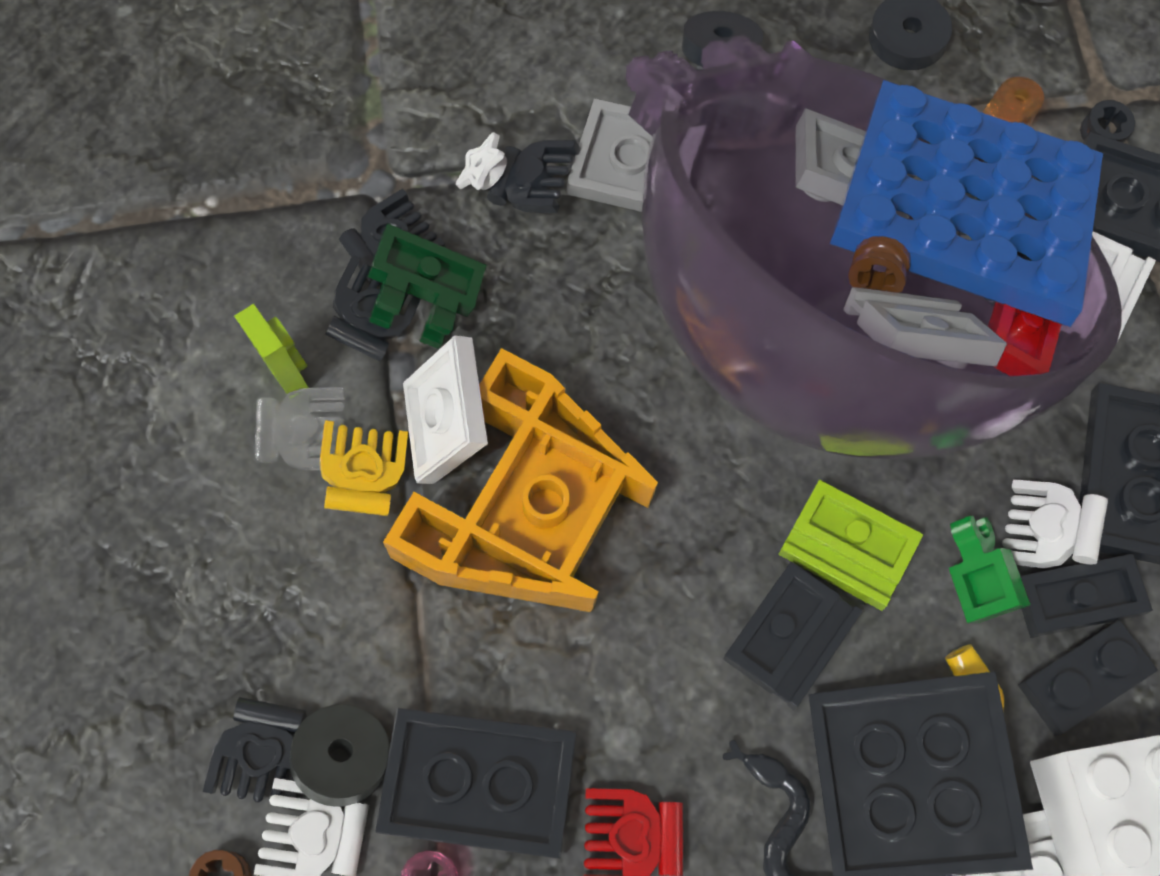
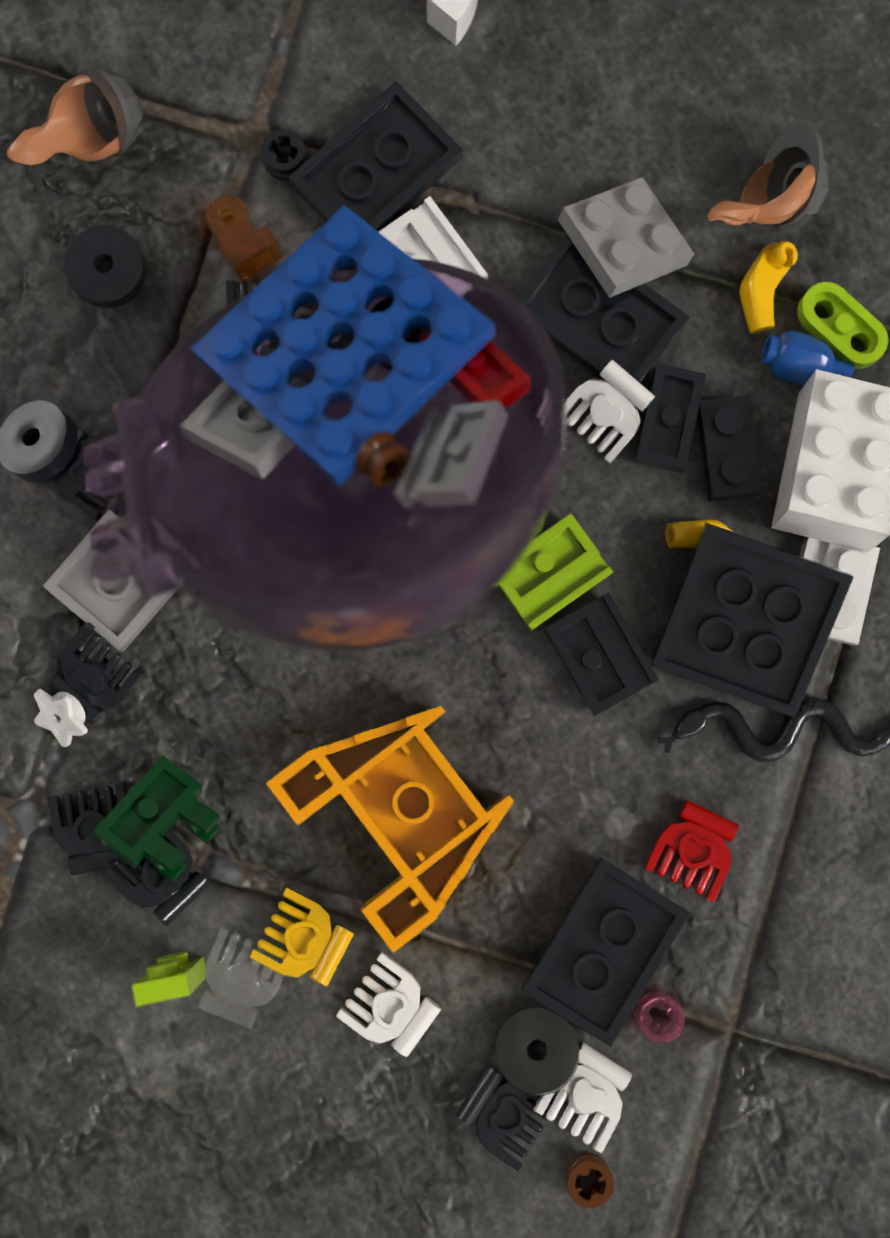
camera: 75 degrees left, 15 degrees up
(324, 588) = (395, 1011): none -> white piece
(444, 411) = (292, 852): white tile -> none
(987, 578) = (625, 484): green plate -> none

